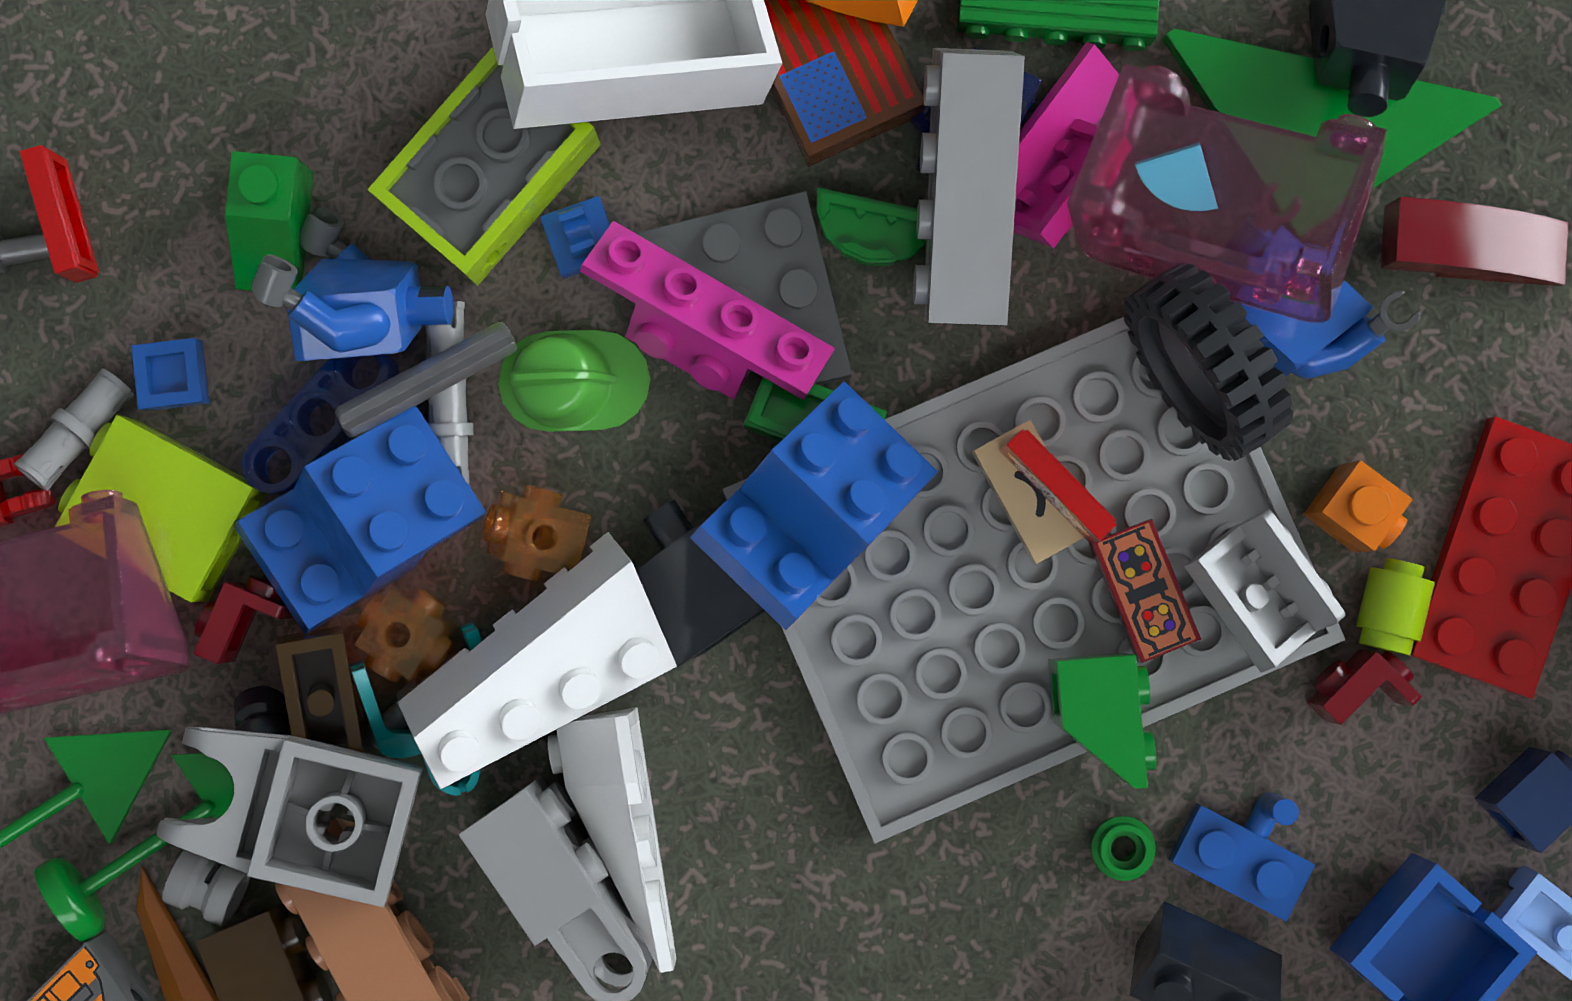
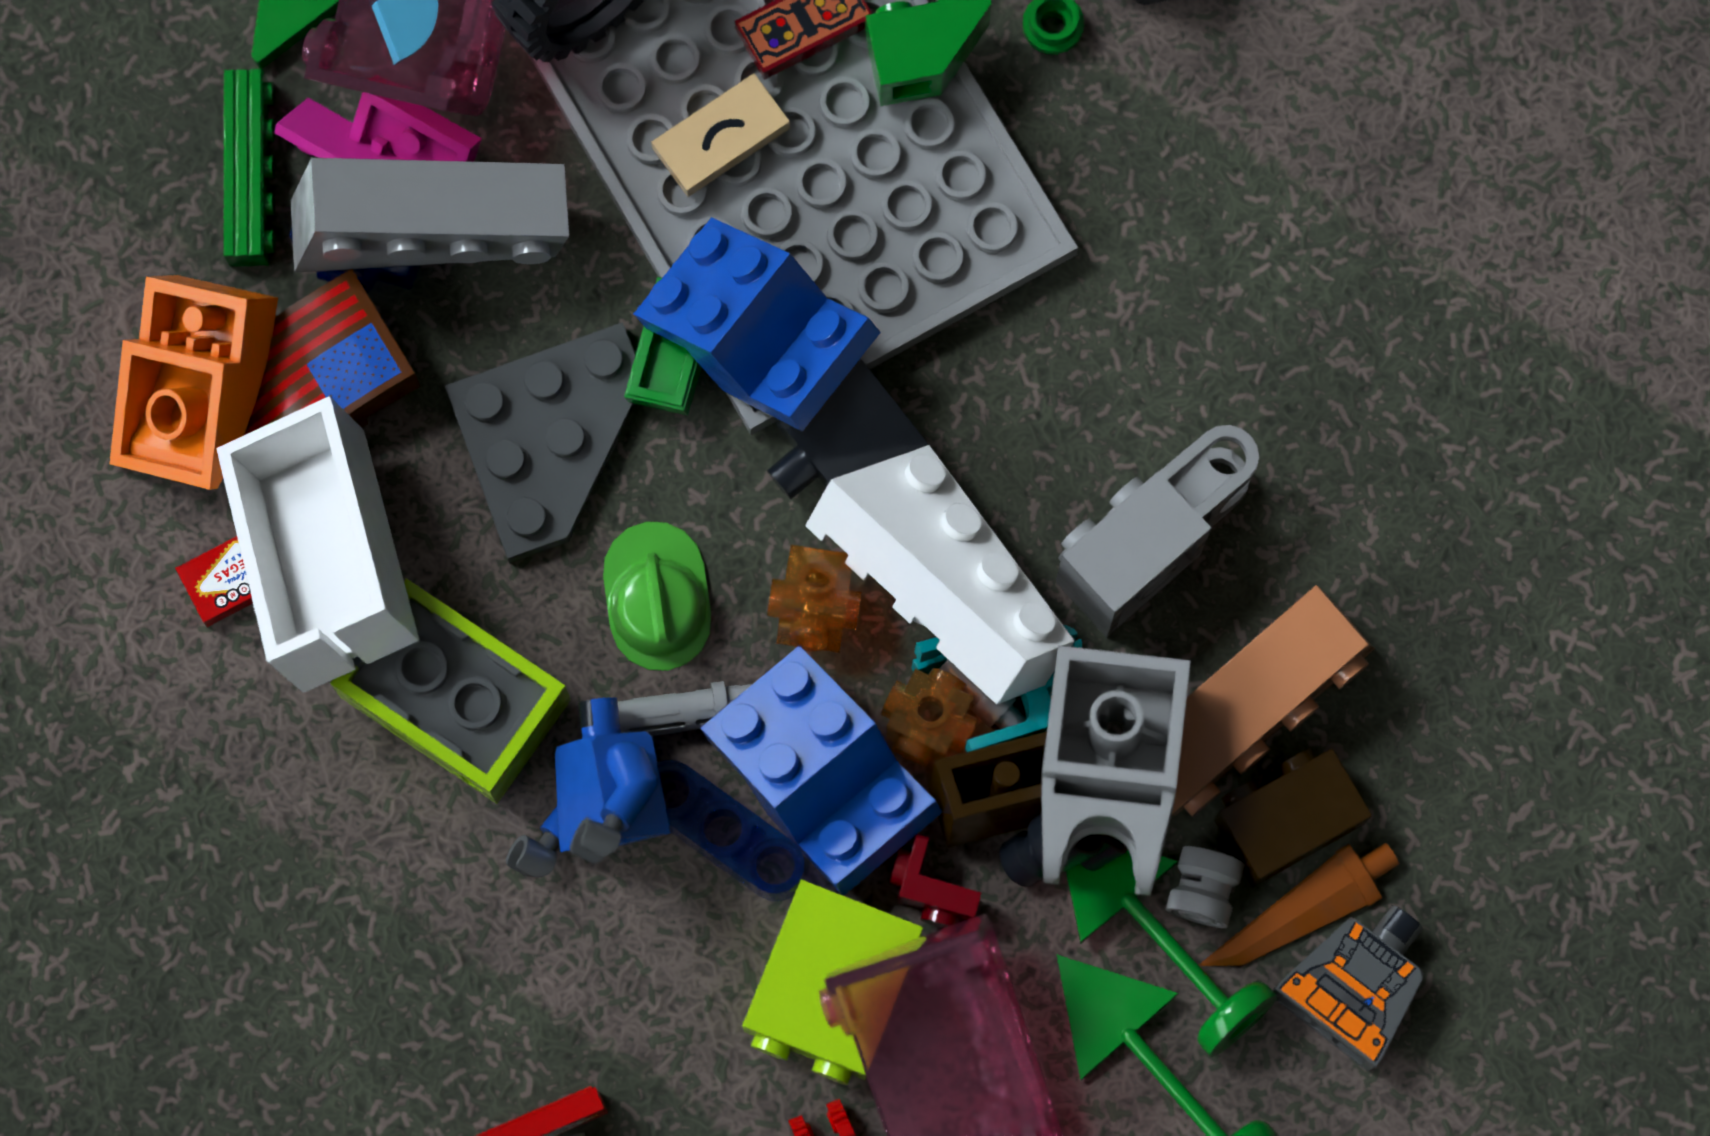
camera: 95 degrees left, 10 degrees down
(74, 429) = (761, 1079): light grey pin -> none
(170, 374) = (694, 985): blue tile -> none
(266, 212) = (529, 909): green slope -> none
(425, 379) = (674, 718): flat silver axle -> none
(575, 233) = (511, 602): blue tile -> none
(612, 794) = (1044, 496): white wedge -> none
(701, 321) = (587, 465): dark pink bracket -> none
(868, 228) = (476, 321): green plate -> none
(1058, 486) = (713, 102): red tile -> none

